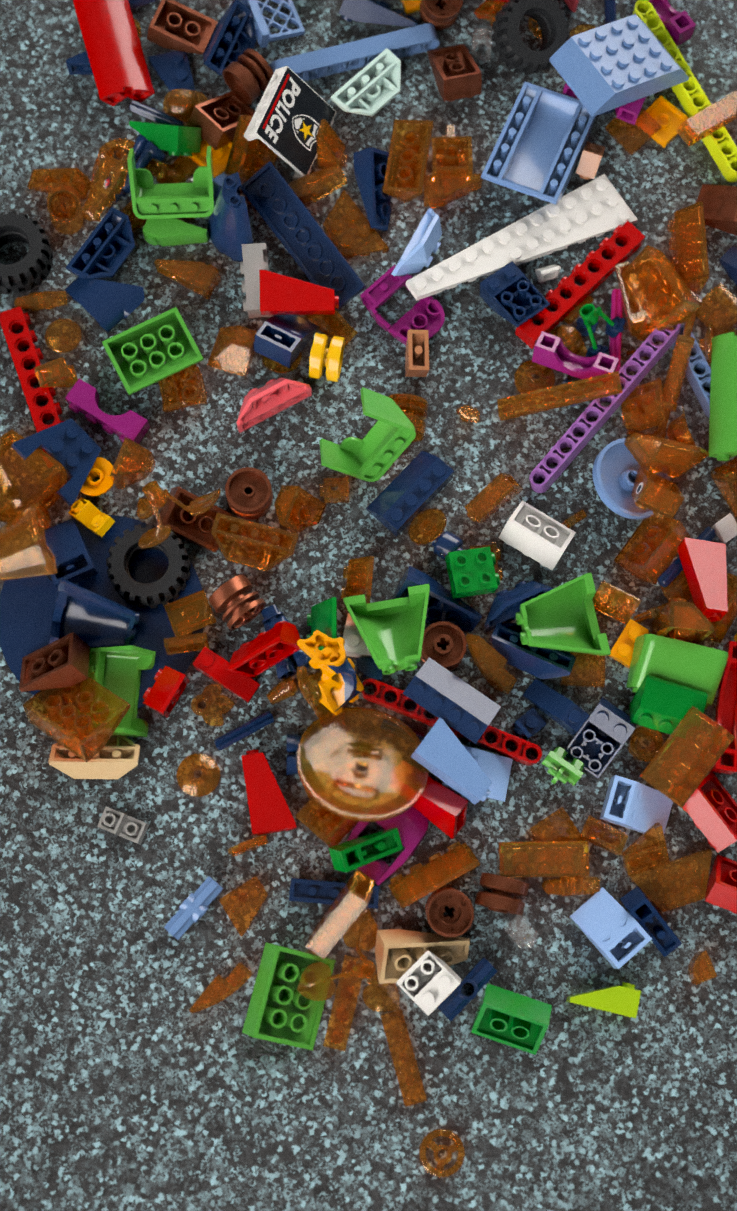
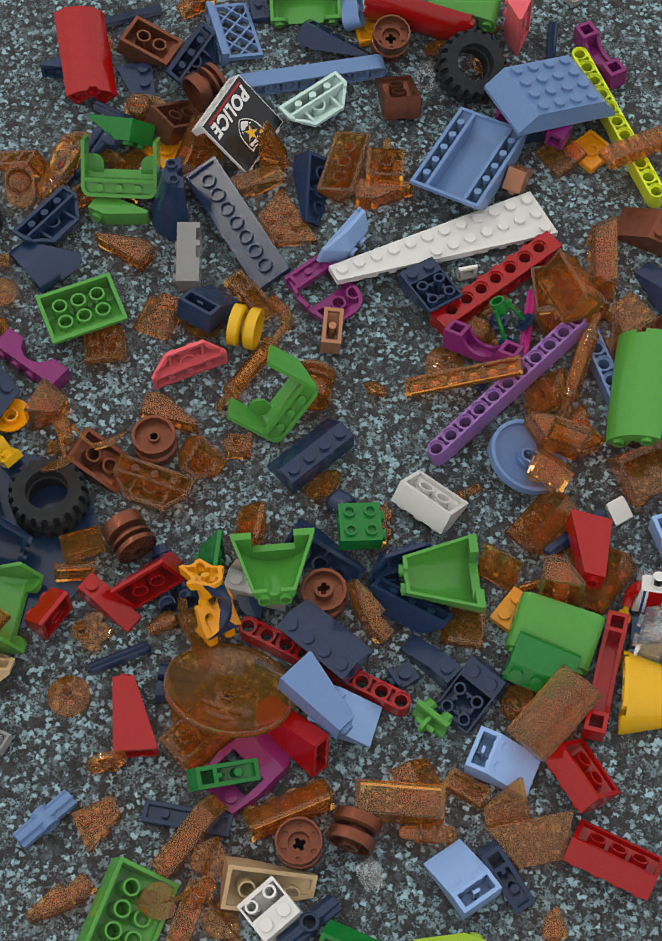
camera: 10 degrees right, 15 degrees down
(249, 454) = (160, 404): none -> clear orange slope
(294, 297) = (220, 270): red slope -> none
(344, 388) = (259, 357): none -> clear orange piece
(493, 497) = (390, 463): clear orange slope -> none

